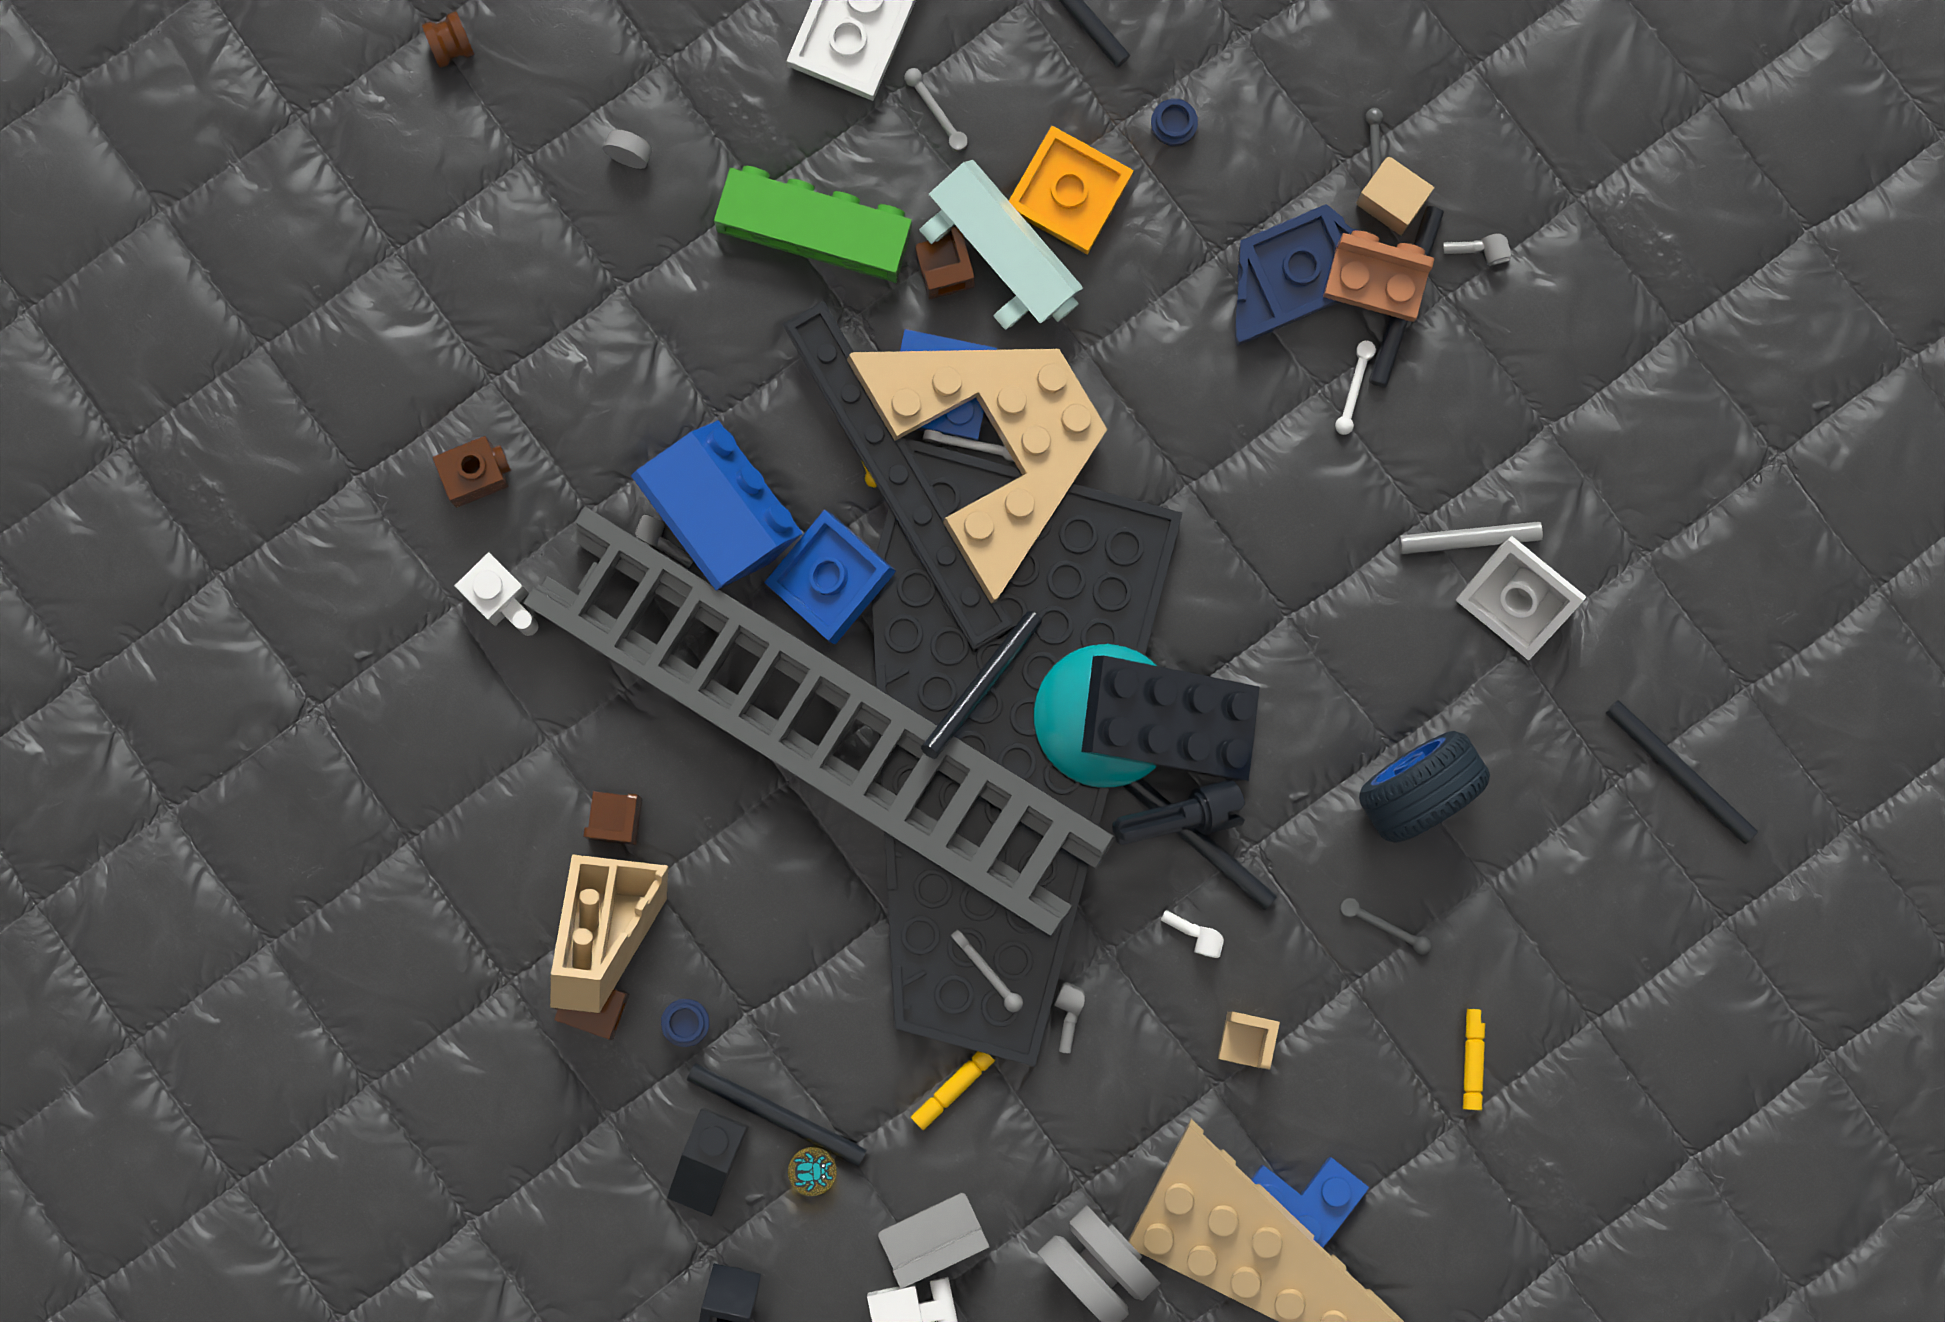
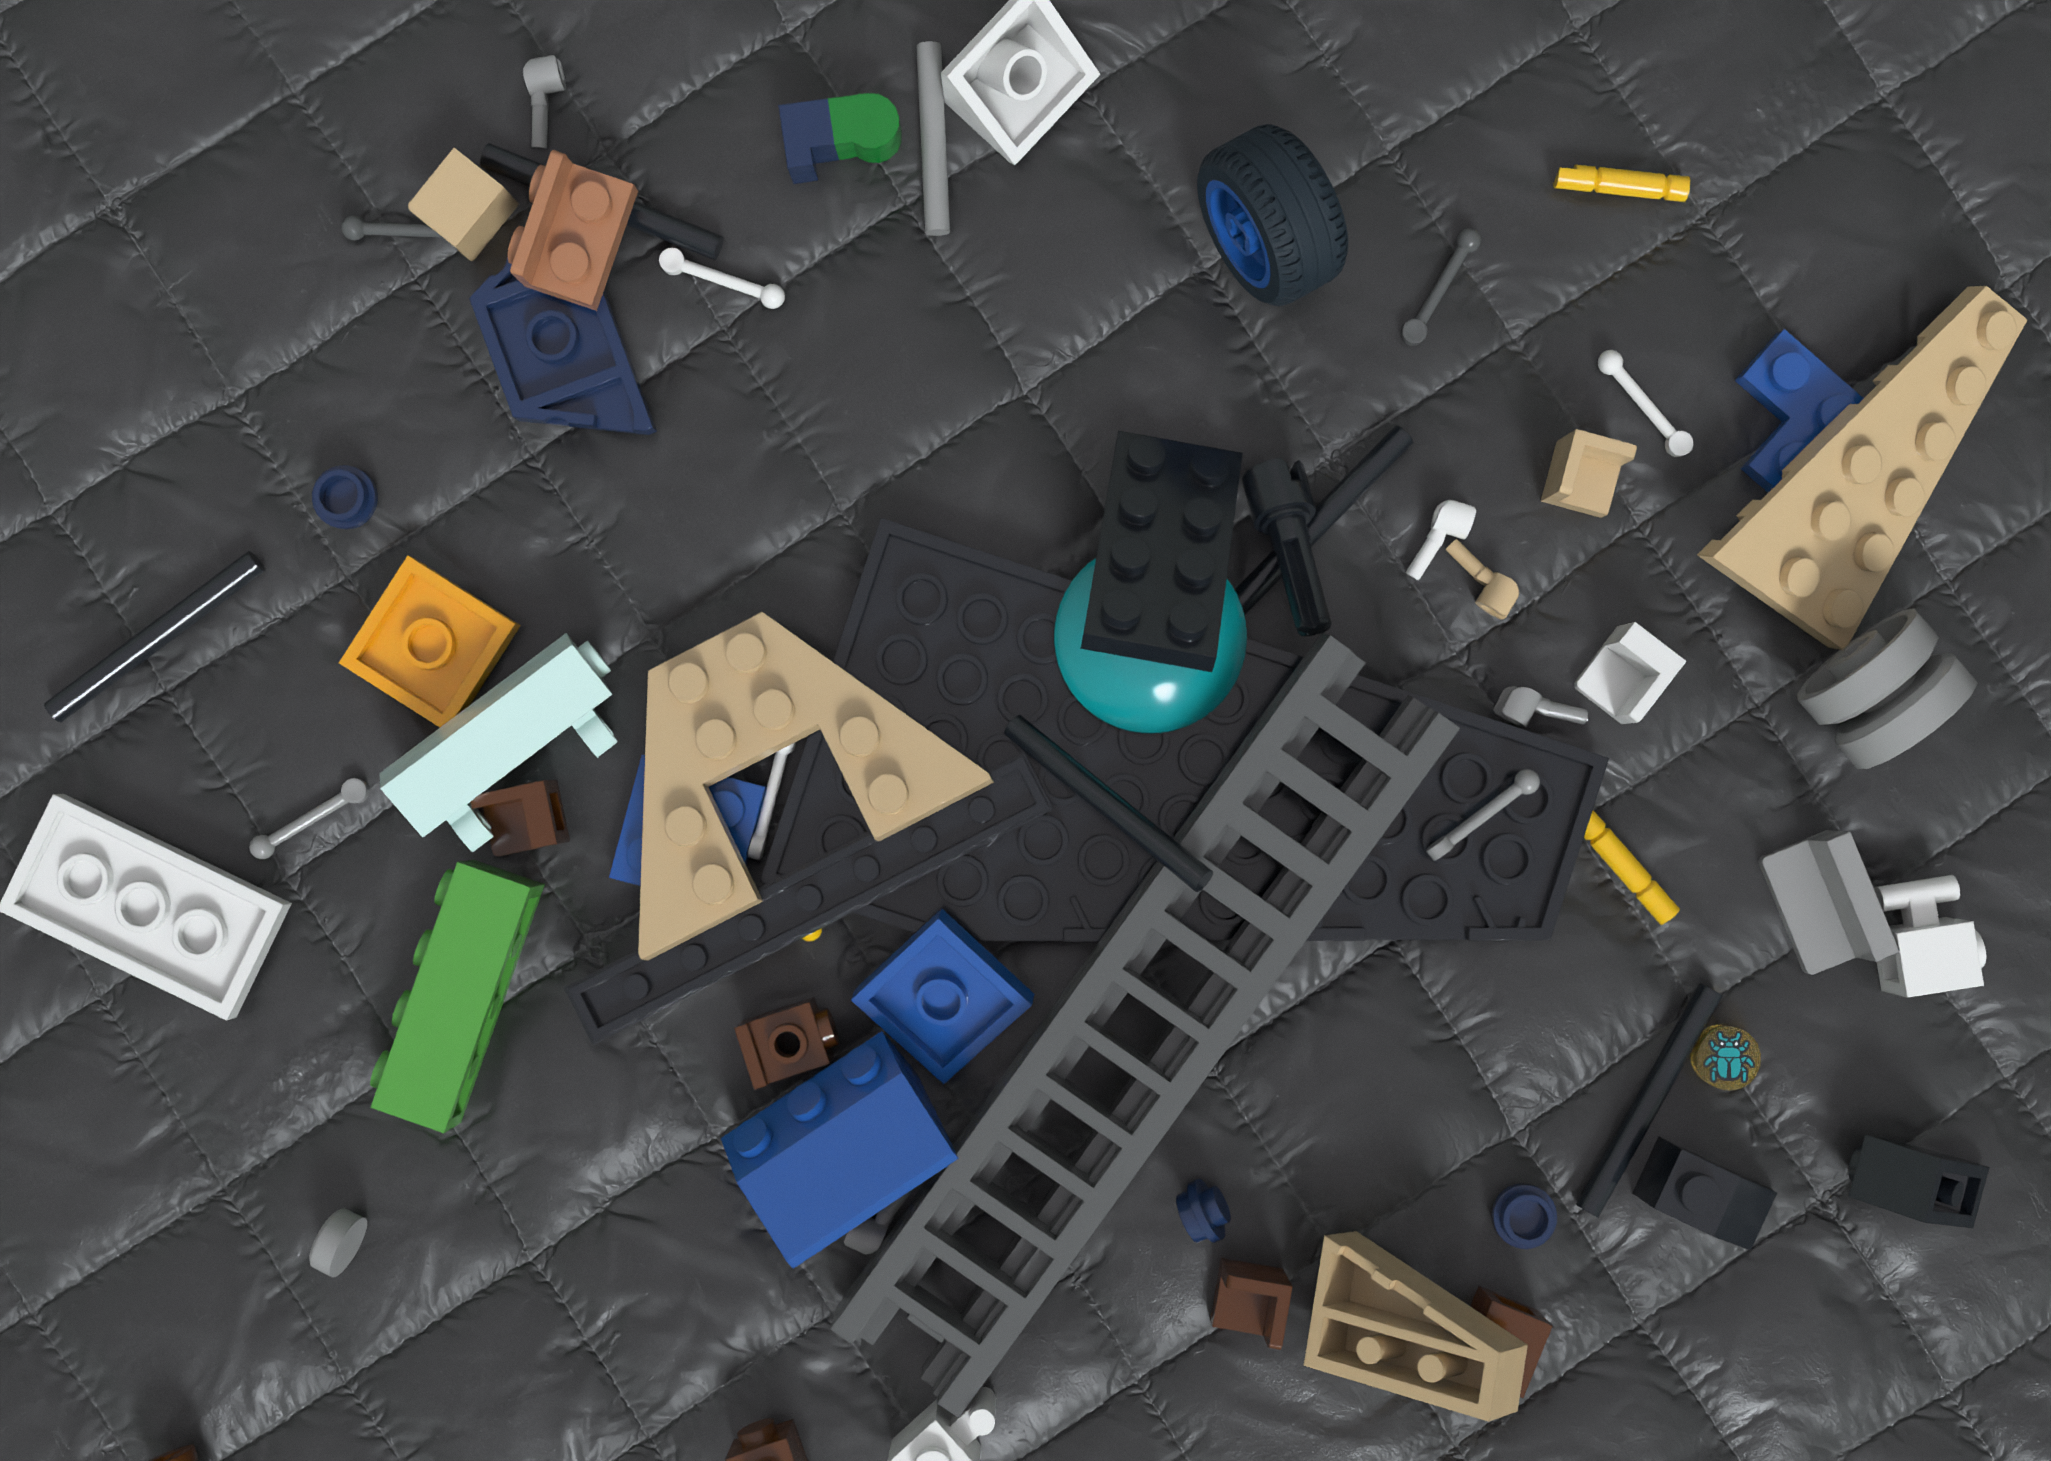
camera: 80 degrees left, 5 degrees up
(678, 779) = (1203, 1211): none -> dark blue plate
(786, 445) = (760, 1047): none -> reddish brown brick
(1099, 1079) = (1629, 673): none -> white panel
(1154, 980) = (1499, 590): none -> tan hand
(1278, 1113) = (1677, 442): none -> white hinge
(1470, 465) = (838, 130): none -> leg

